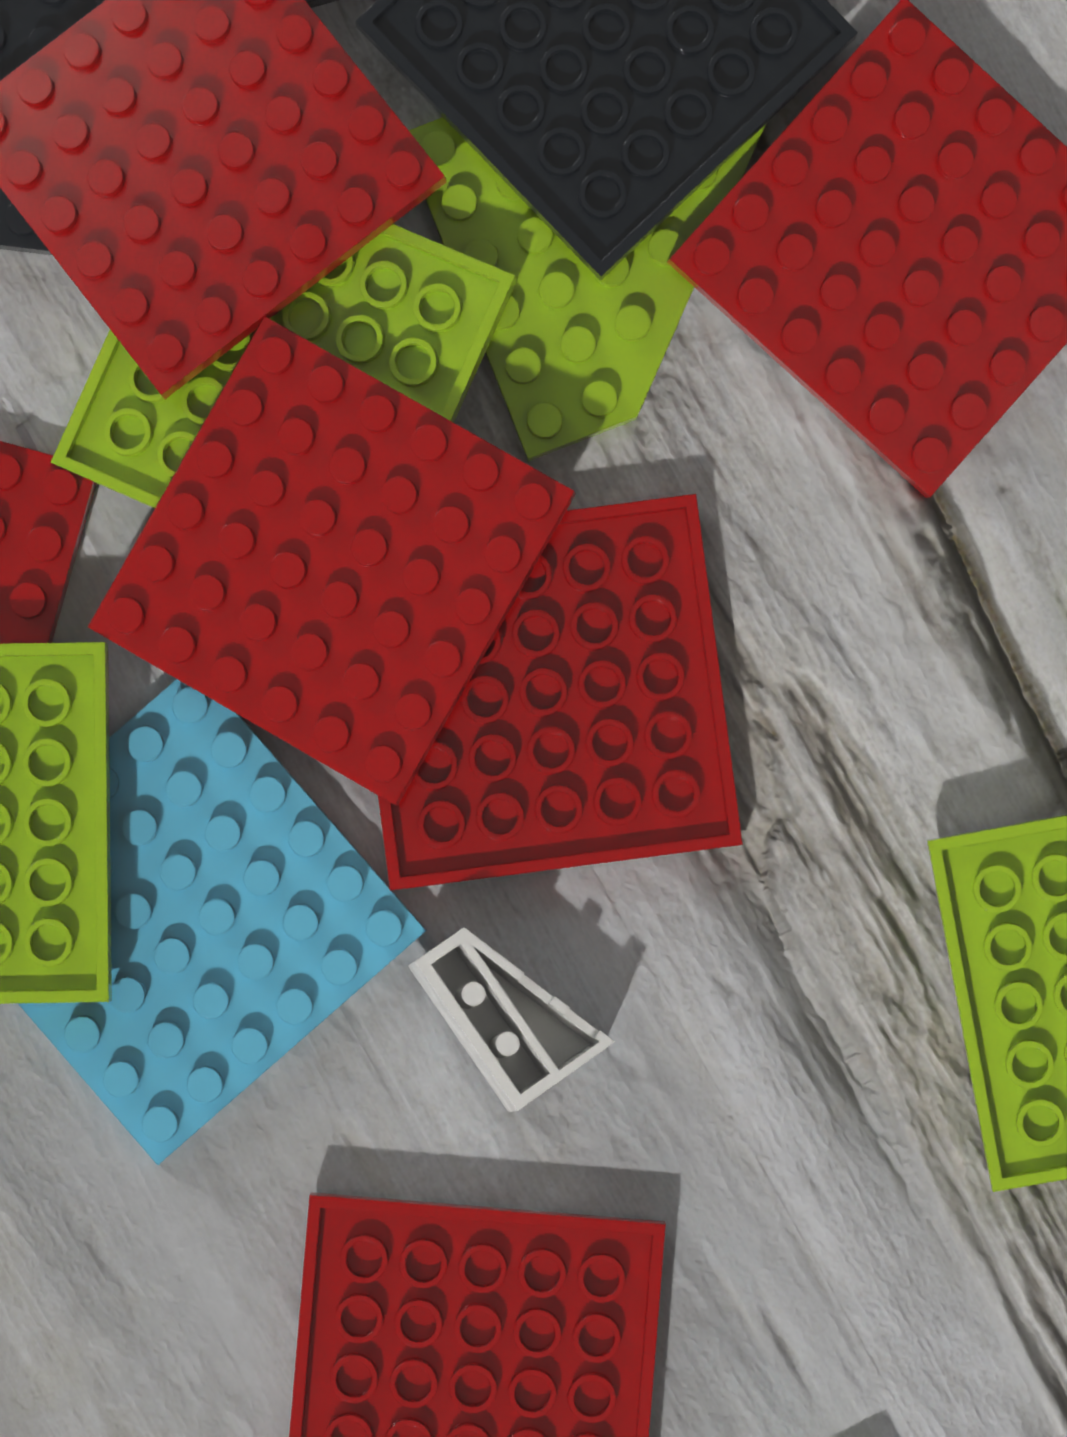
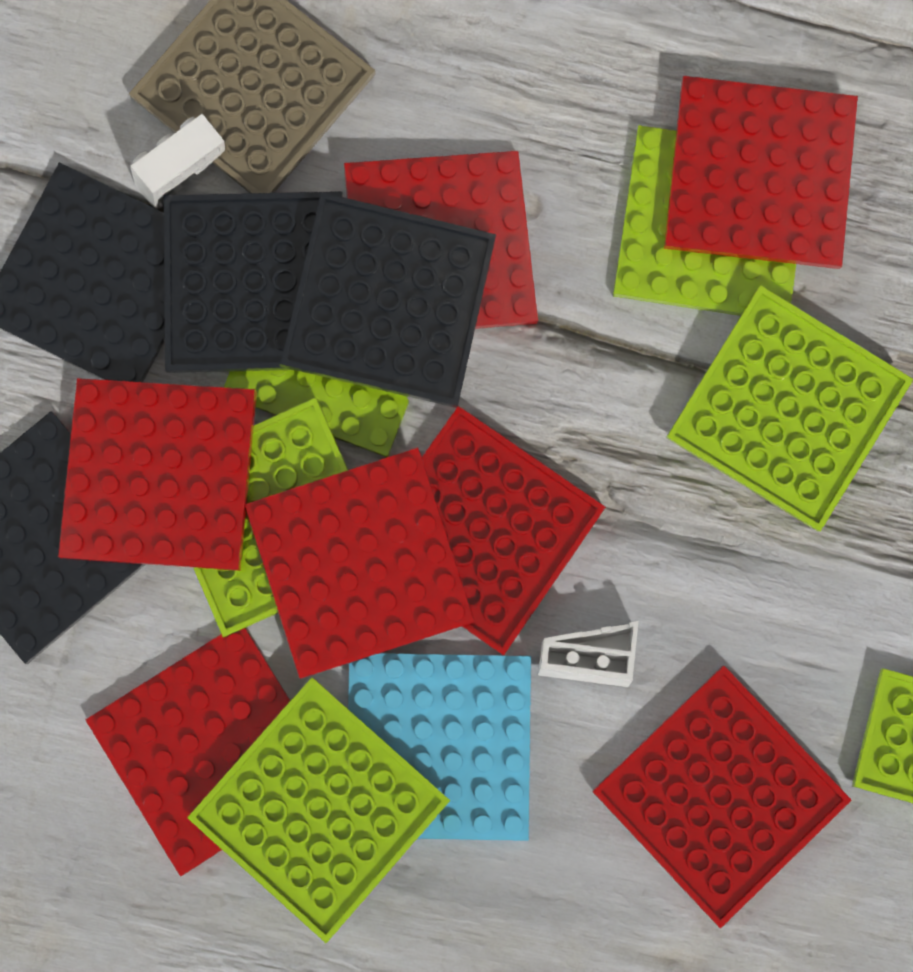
camera: 50 degrees left, 5 degrees down
(755, 248) = (388, 300): none -> black plate

